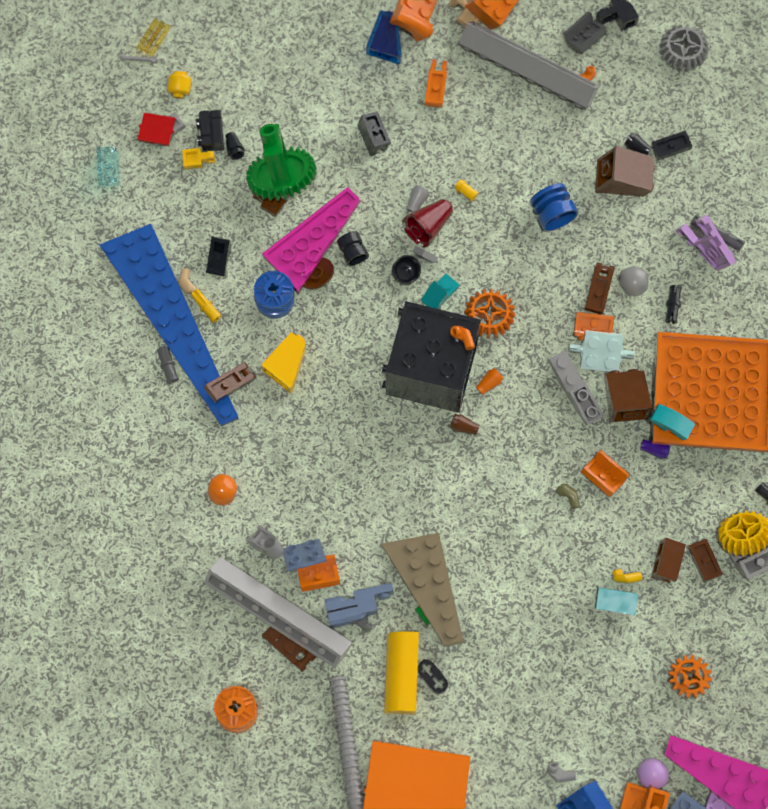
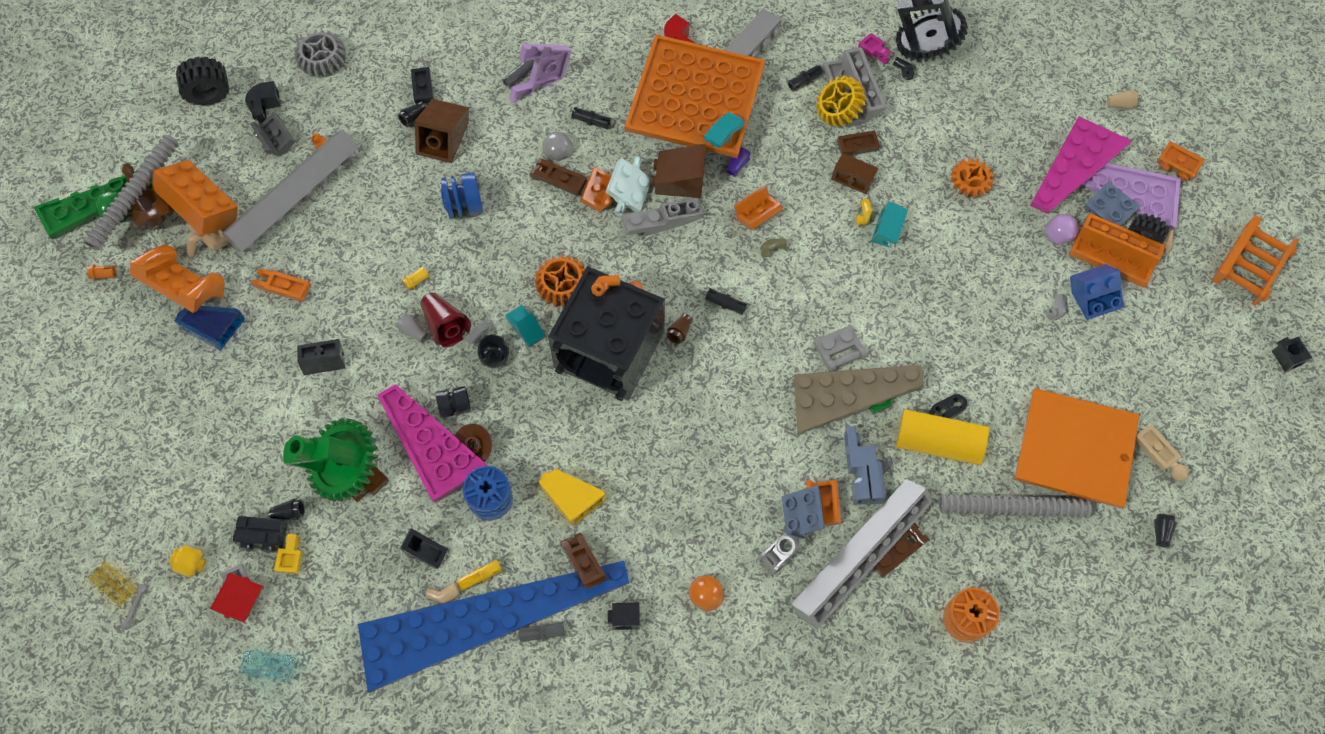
camera: 80 degrees left, 5 degrees down
(190, 426) = (624, 616): none -> black brick
(479, 567) = (838, 342): none -> light grey plate
(500, 461) = (726, 301): none -> black pin

